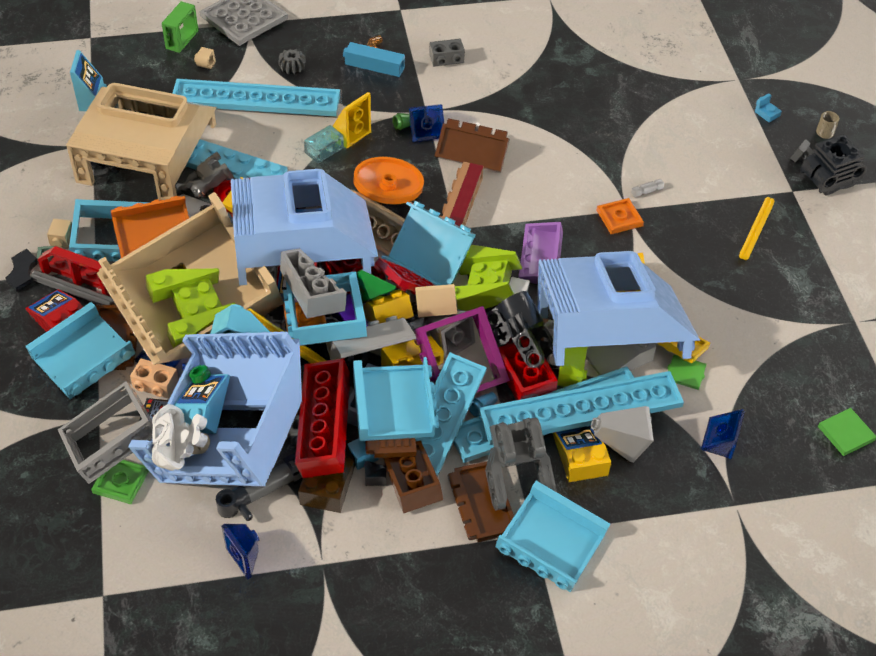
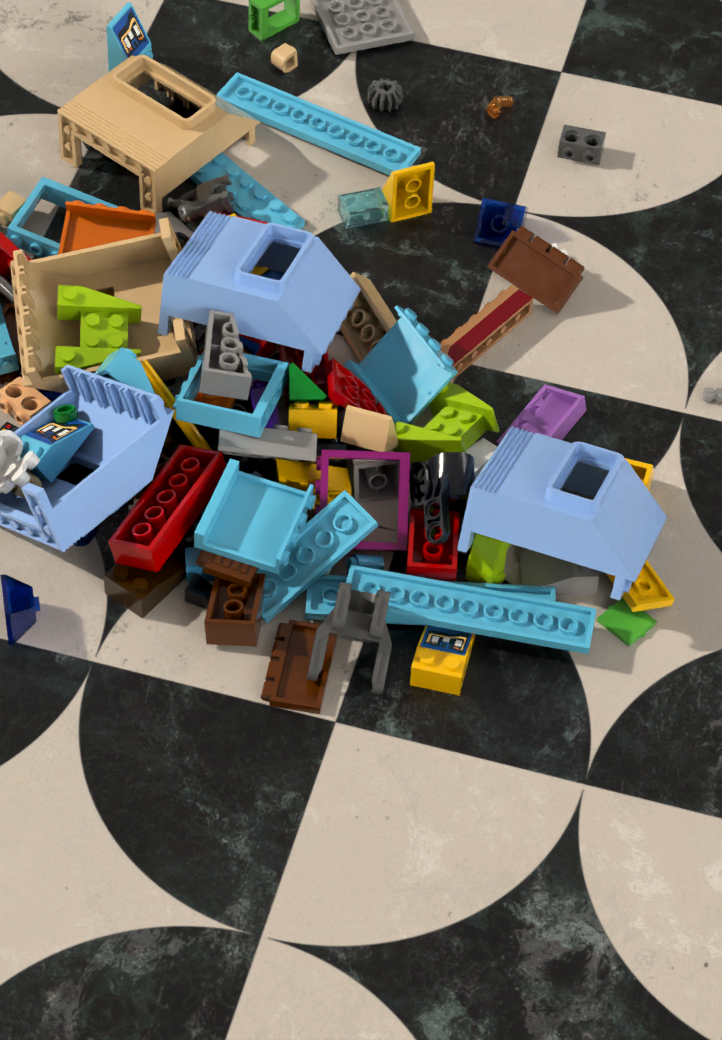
camera: 25 degrees right, 0 degrees up
(244, 495) = (38, 560): piece -> none
(374, 59) = (486, 124): dark azure brick -> none
(388, 180) = (410, 276): orange dish -> none
(401, 120) = (471, 210): bright green cone -> none
(553, 536) = (351, 731): medium azure panel -> none
(619, 216) = (668, 416): orange tile -> none
(625, 431) = (496, 650): light grey slope -> none
(723, 433) = (621, 703): clear blue slope -> none

